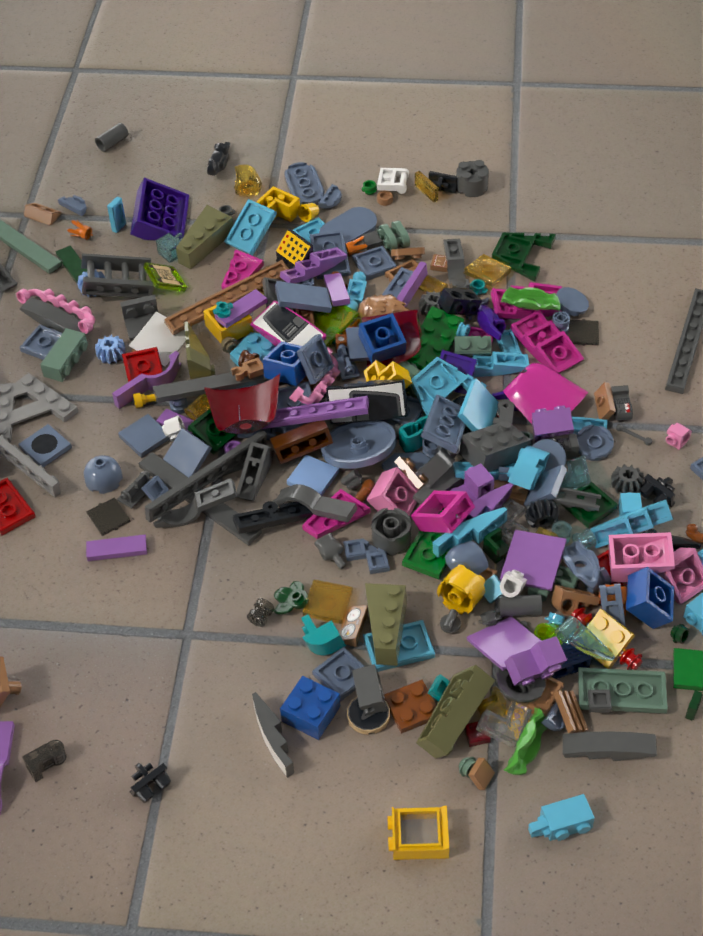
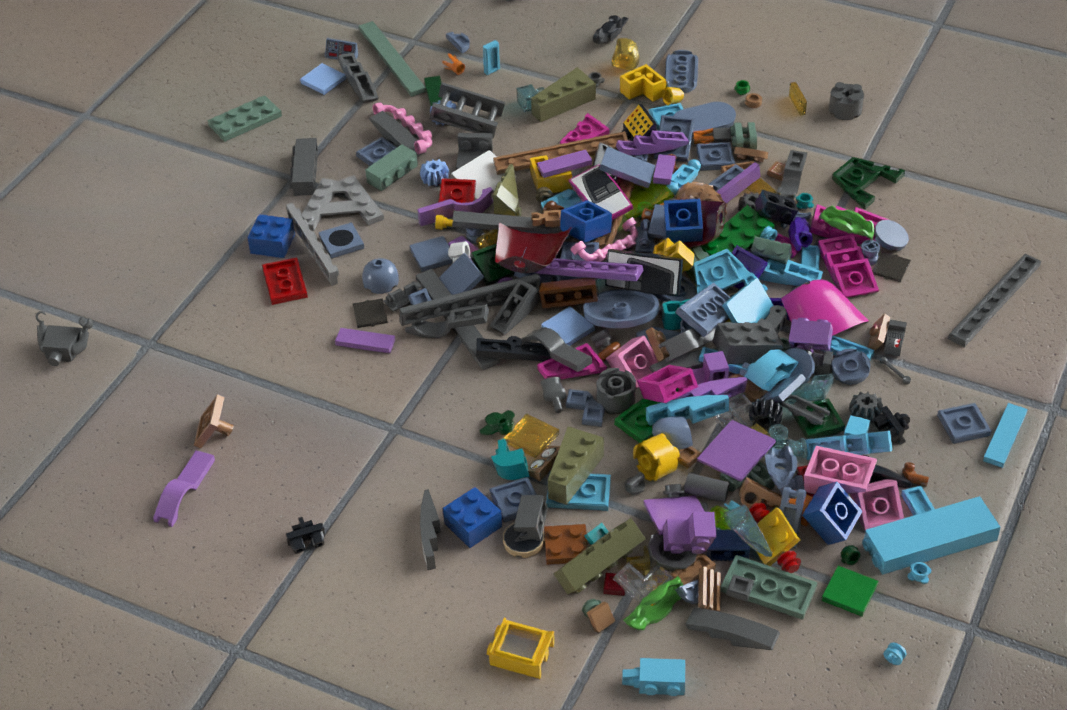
camera: 20 degrees right, 5 degrees down
(41, 213) = (427, 42): medium nougat slope -> none
(44, 757) = (227, 491): clear smoke leg -> none
(158, 211) = (533, 63): dark purple slope -> none
(165, 277) = (511, 122): tile -> none
(223, 309) = (545, 159): teal plate -> none
(250, 227) = (609, 96): medium azure tile -> none
(261, 611) = (464, 428): clear smoke wheel -> none
(315, 359) = (611, 222): sand blue tile -> none
(331, 197) = (700, 89): sand blue plate -> none
(387, 179) = (763, 82): white plate -> none
(444, 181) = (816, 98): black hips -> none
(487, 269) = (821, 188): clear yellow tile -> none
(492, 589) = (688, 464): medium azure tile -> none
(495, 546) = (708, 428): dark green panel -> none
(512, 583) = (704, 463): white plate -> none
(678, 435) = (937, 382): bright pink plate -> none
(694, 705) = (831, 619): dark green tile -> none

